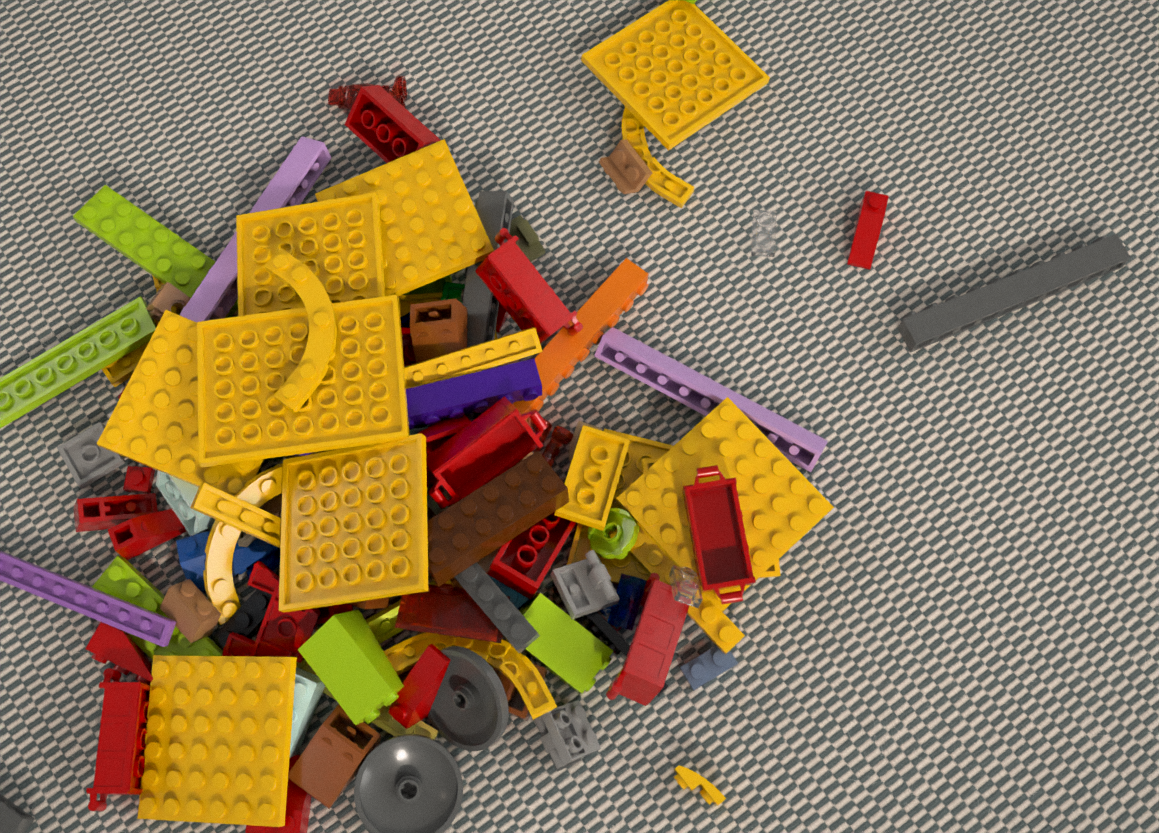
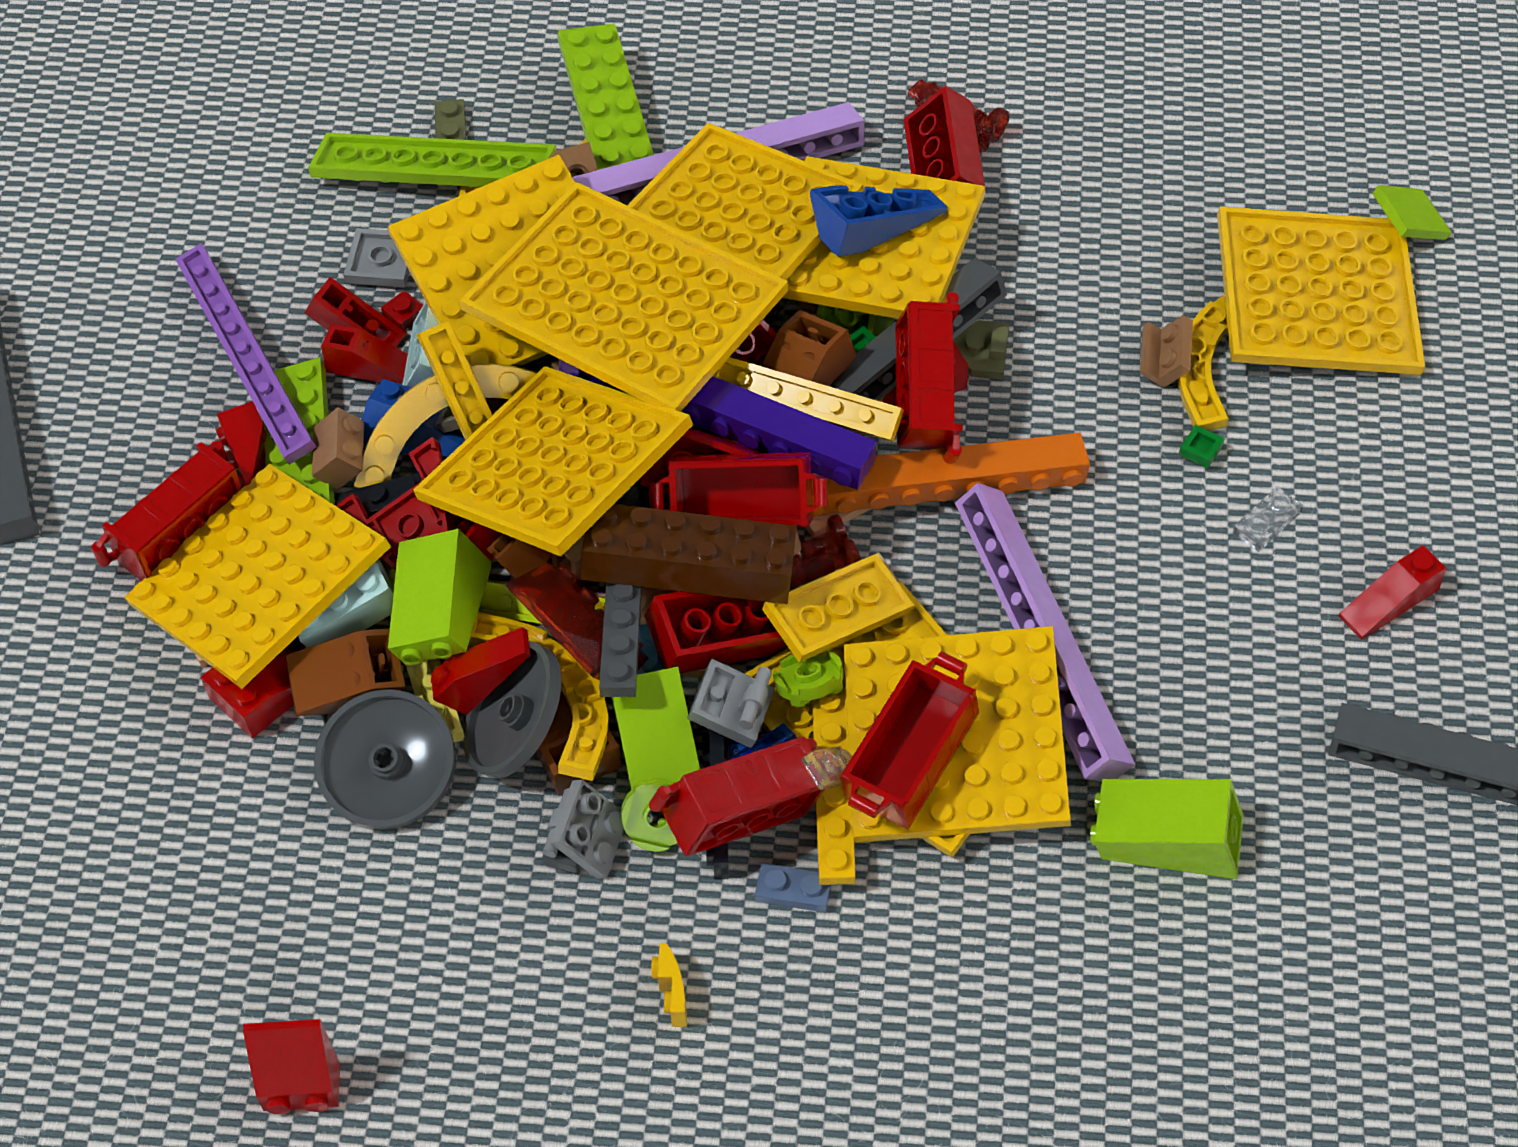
camera: 40 degrees right, 15 degrees down
(50, 326) = (450, 119): none -> olive plate
(321, 329) = (680, 265): yellow plate -> none
(397, 215) = (861, 220): none -> blue wedge
(589, 688) = (639, 824): none -> lime plate
(693, 215) = (1201, 446): none -> green plate
(874, 463) = (1170, 824): none -> lime slope

